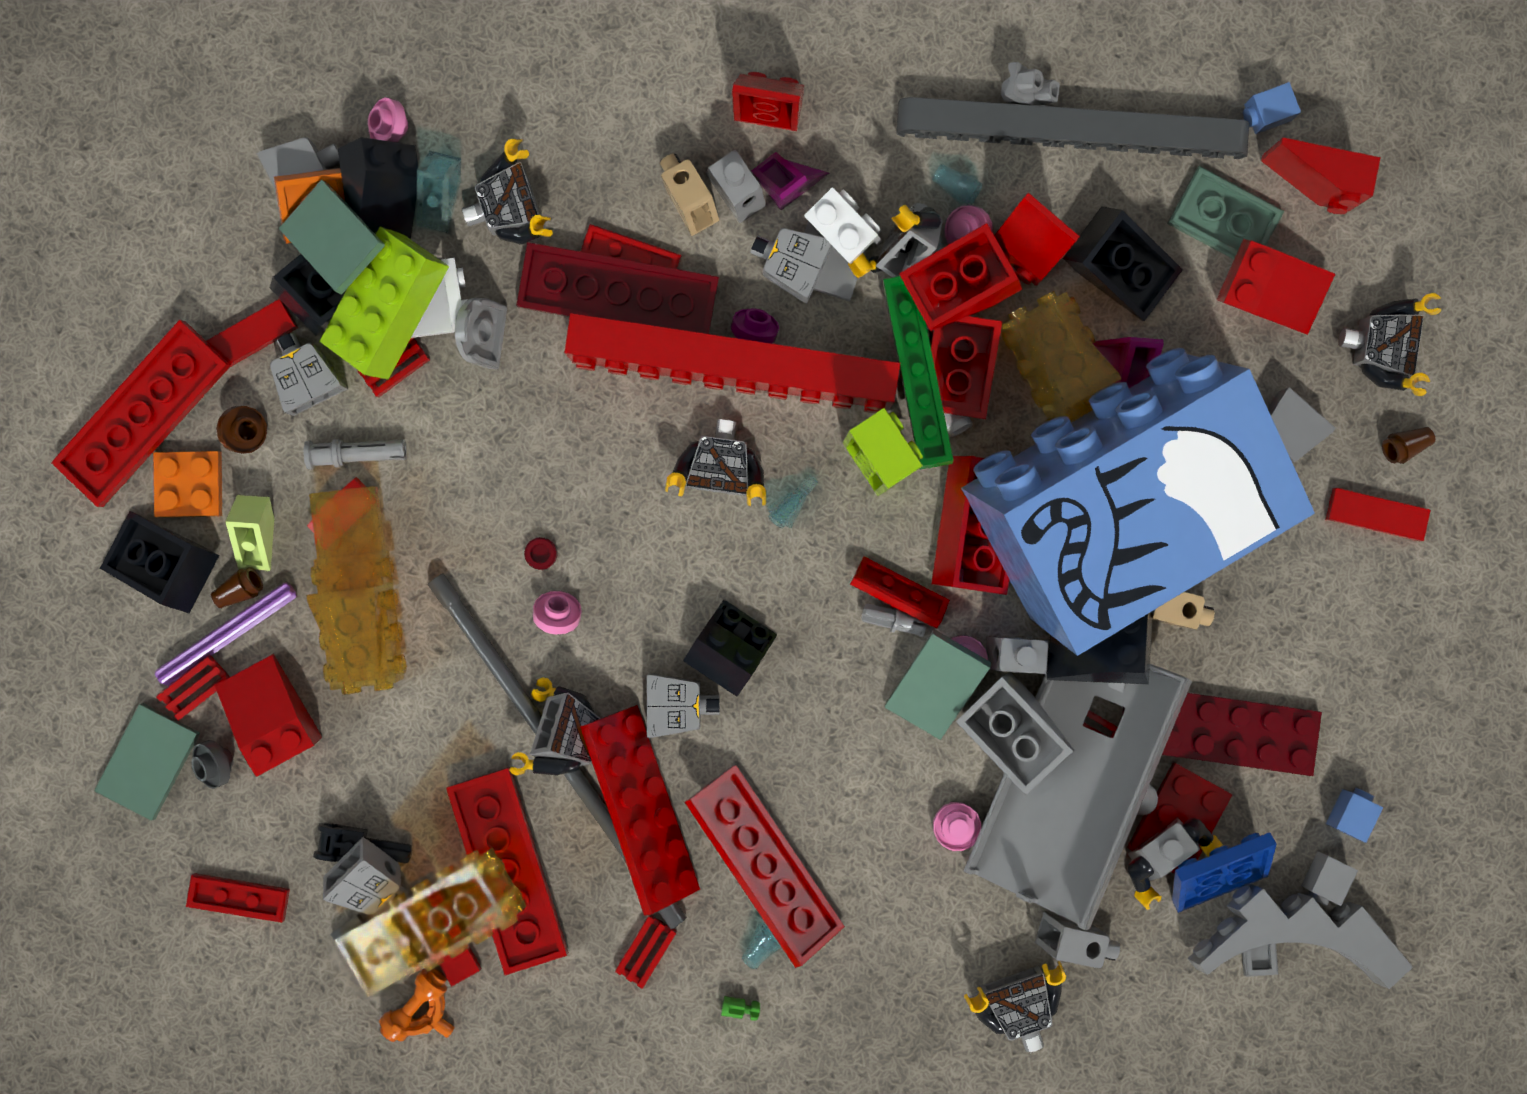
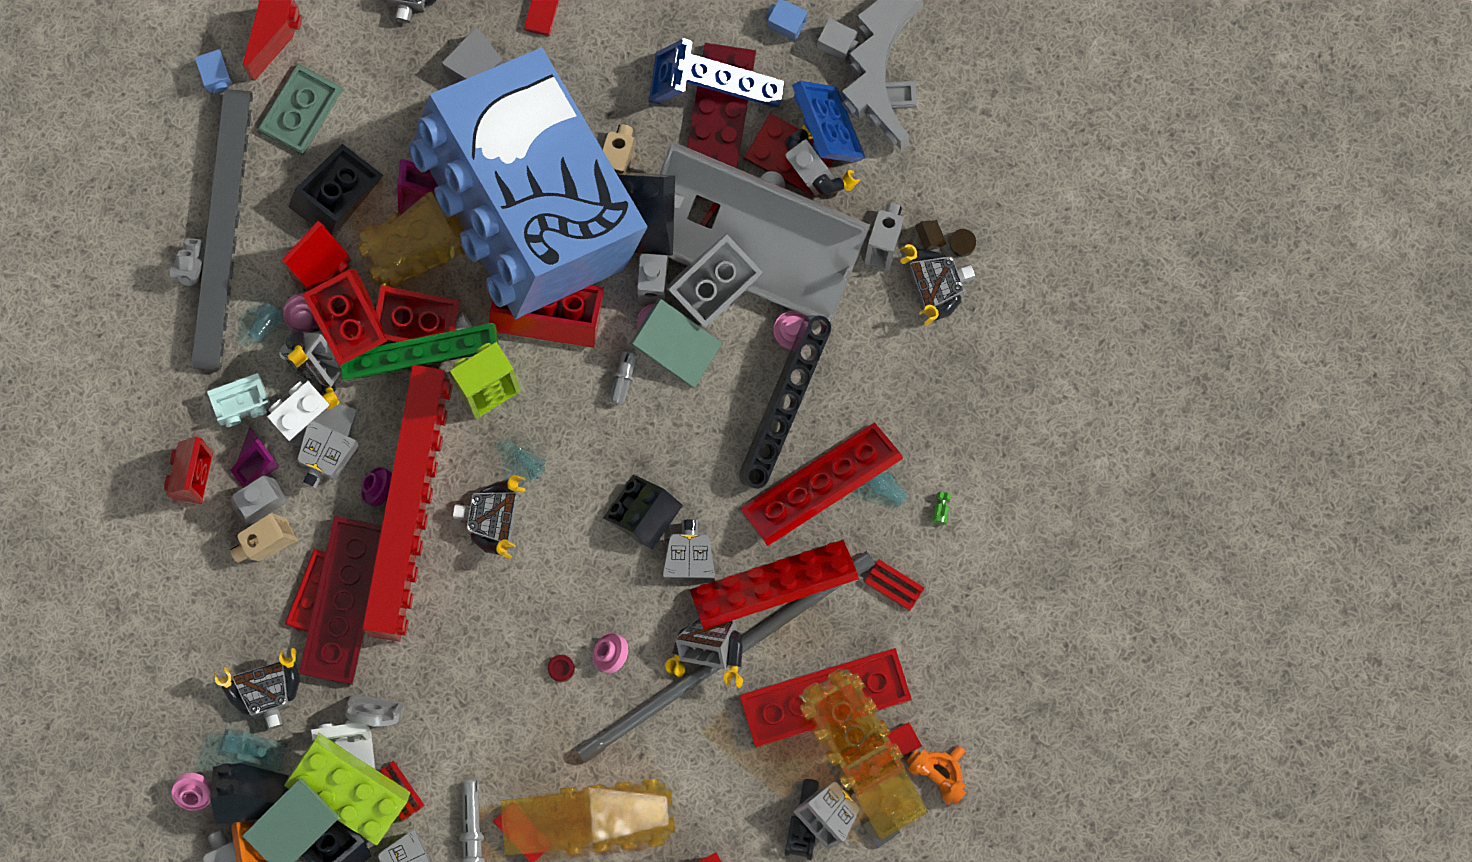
camera: 90 degrees left, 10 degrees down
(859, 158) = (239, 400): none -> light aqua hinge
(876, 834) = (774, 409): none -> black beam
(900, 592) = (600, 373): red tile -> none
(1072, 1033) = (962, 242): none -> dark brown tile
(1080, 995) = (930, 234): none -> dark brown tile
(1275, 286) = (359, 71): red slope -> none
(1291, 682) = (676, 67): none -> bracket

